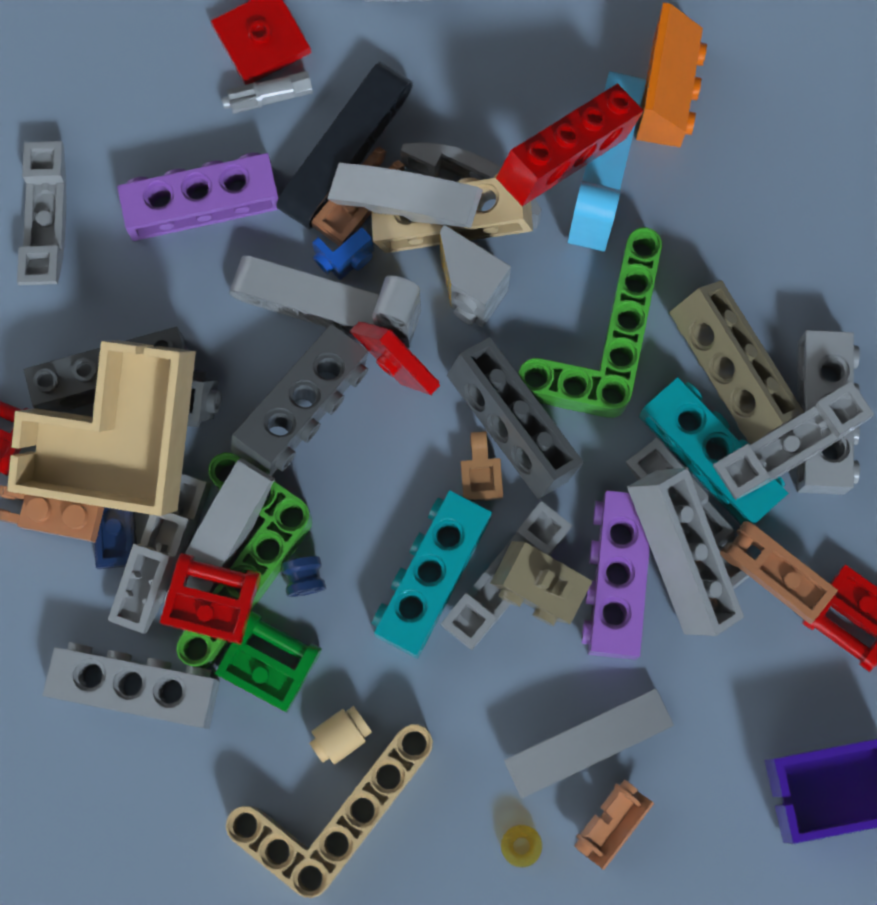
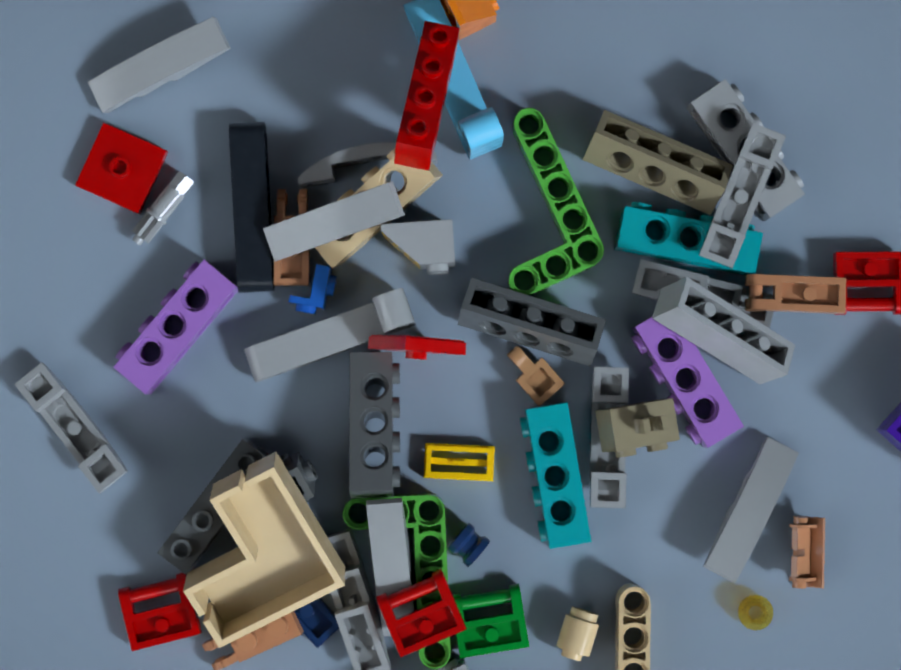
camera: 40 degrees left, 10 degrees up
(379, 520) = (489, 463): none -> yellow tile

